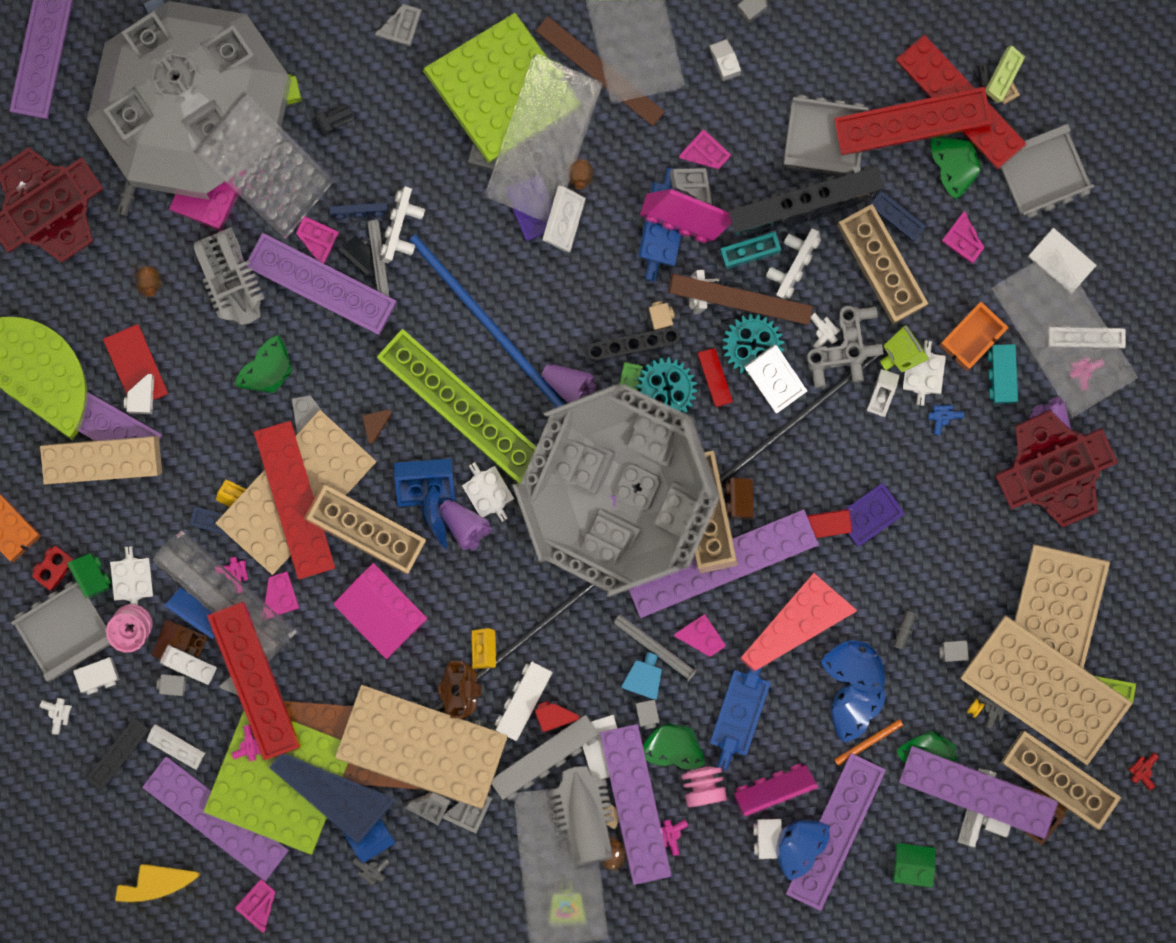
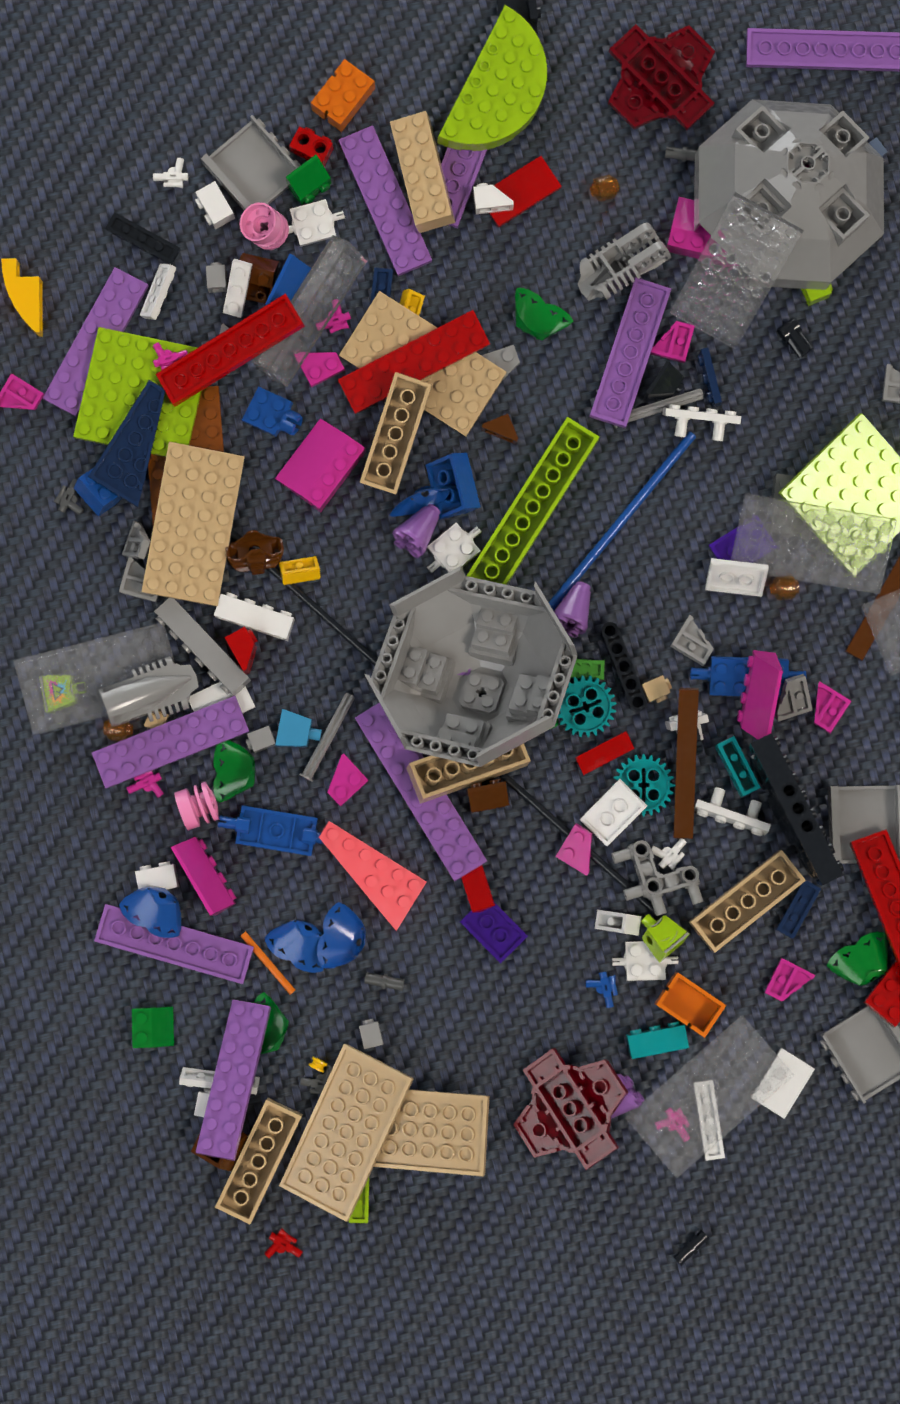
camera: 85 degrees right, 0 degrees up
(121, 503) = (385, 200): none -> medium lavender plate
(320, 651) = (272, 413): none -> blue plate
(620, 273) = (692, 642): none -> light grey wing
(805, 420) = (577, 849): none -> dark pink wing

